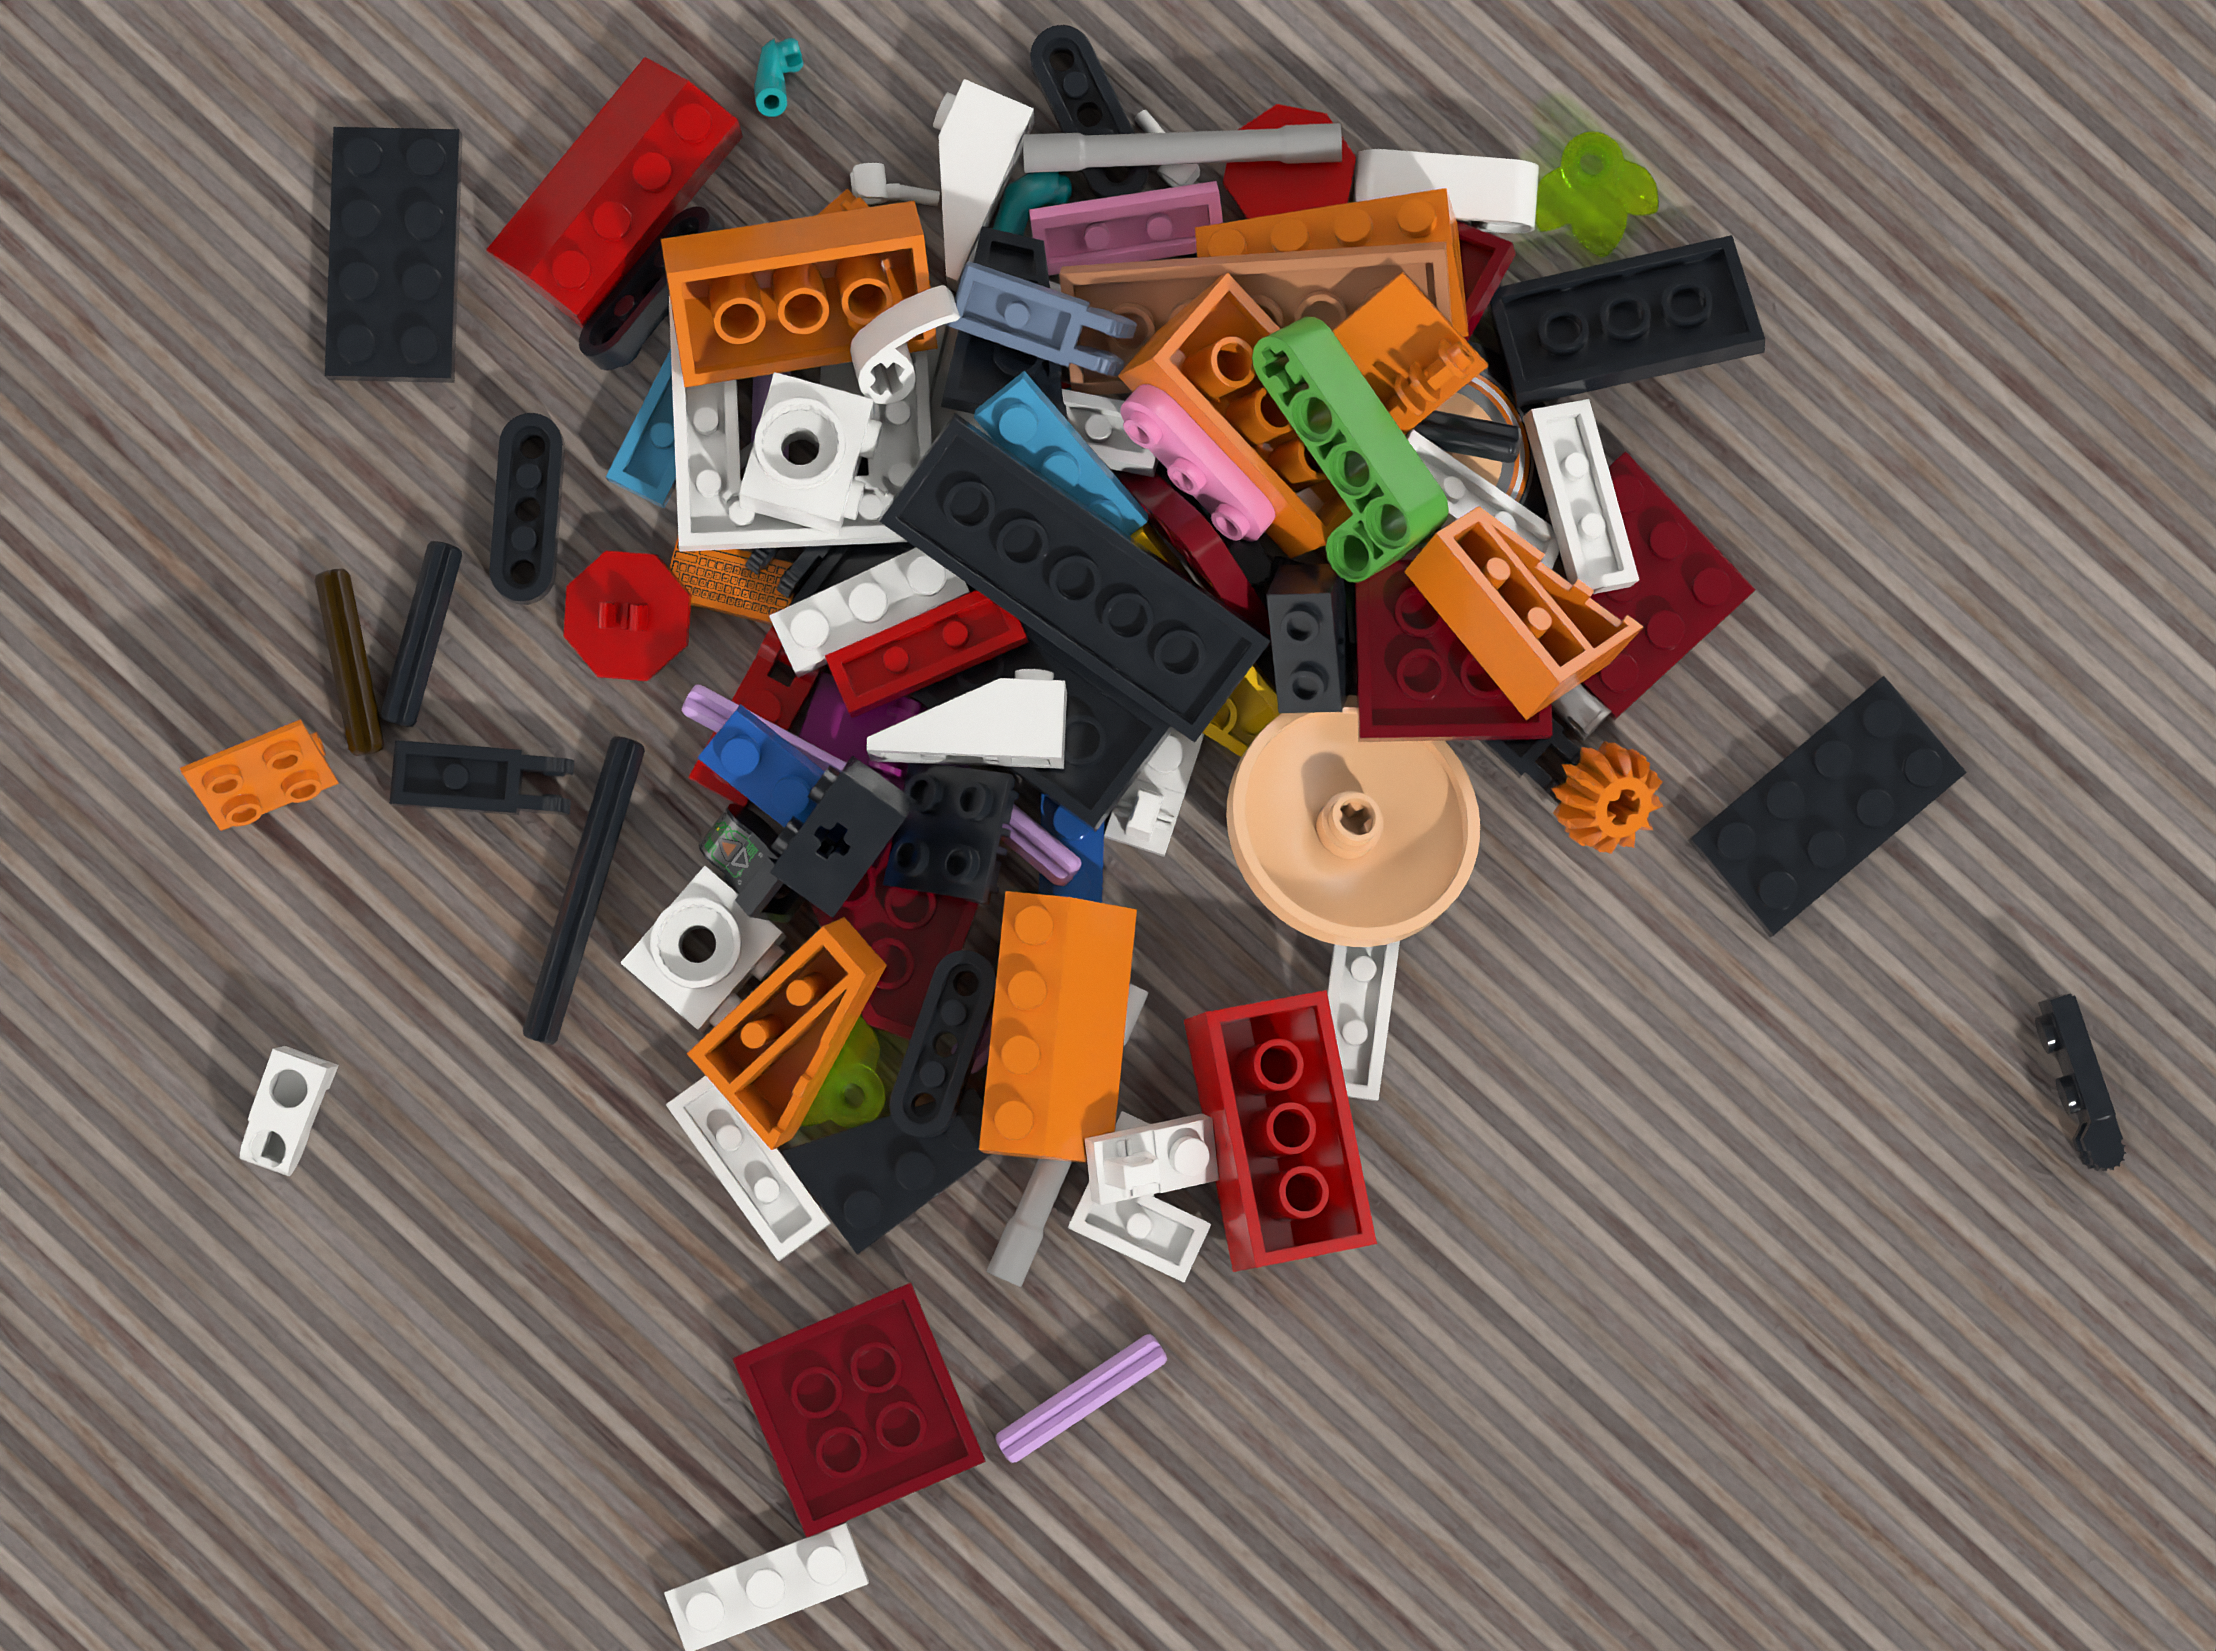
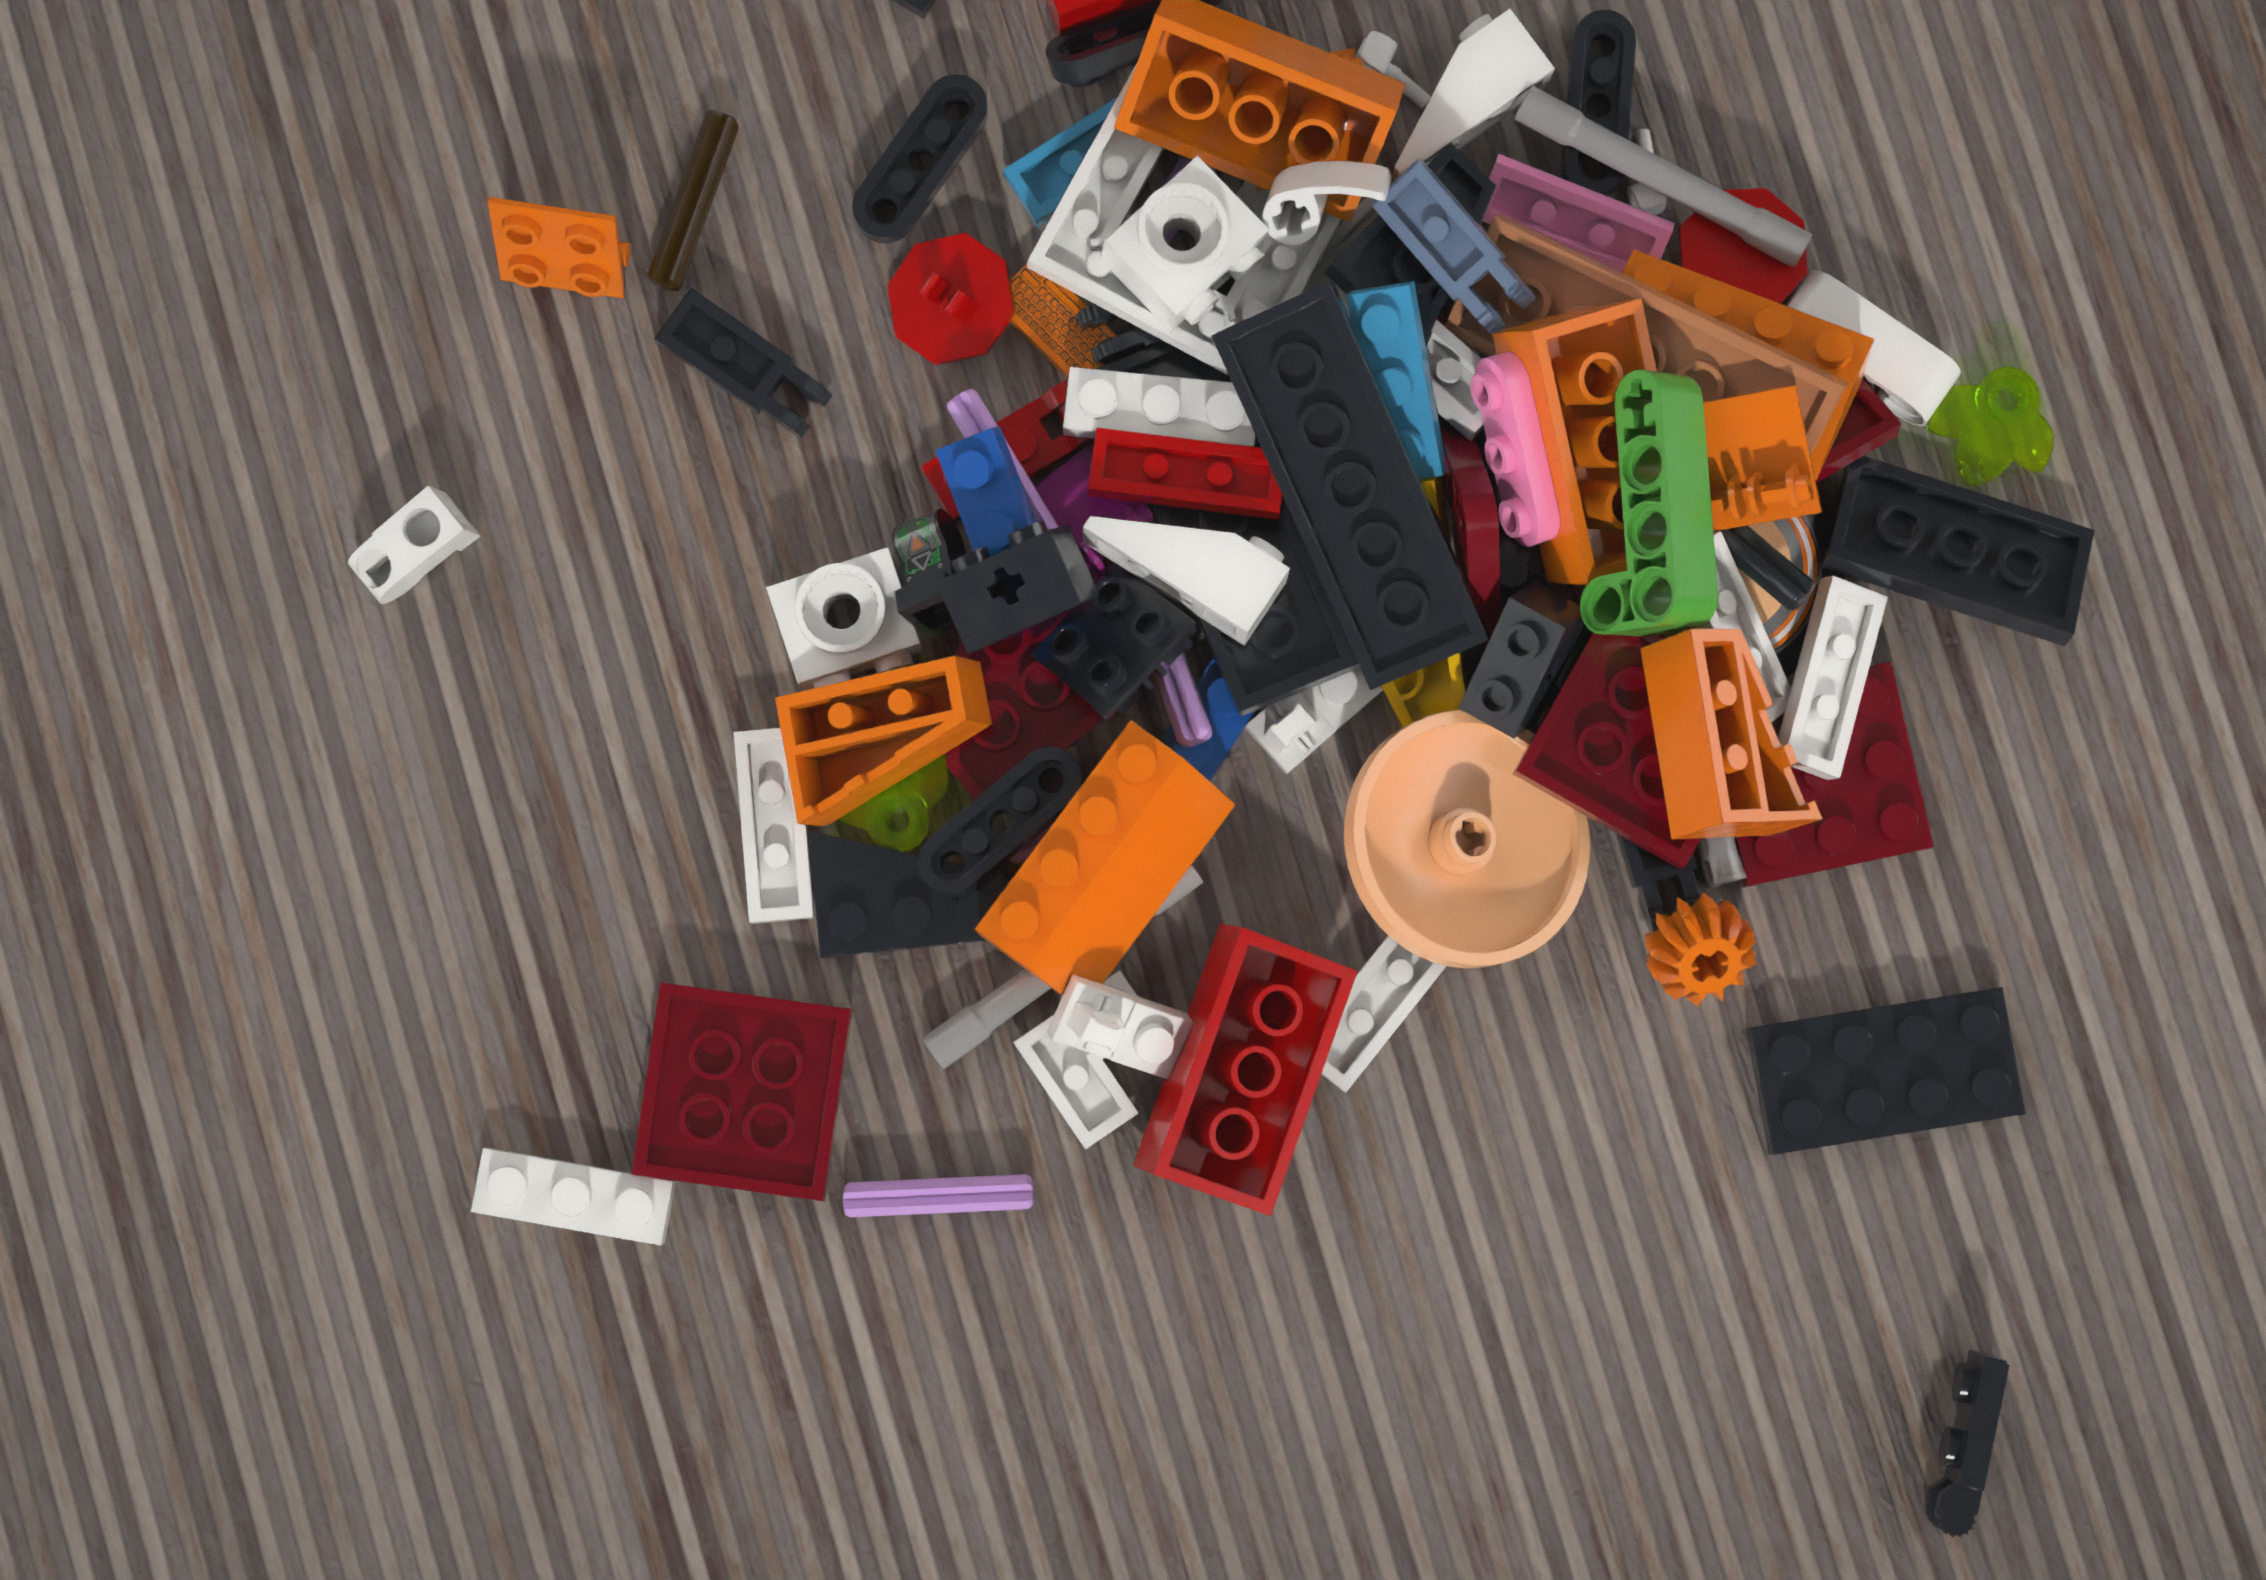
camera: 30 degrees right, 0 degrees up
(421, 634) = (768, 212): black axle -> none
(583, 890) = (774, 510): black axle -> none
(1030, 193) = (1508, 140): teal arm -> none

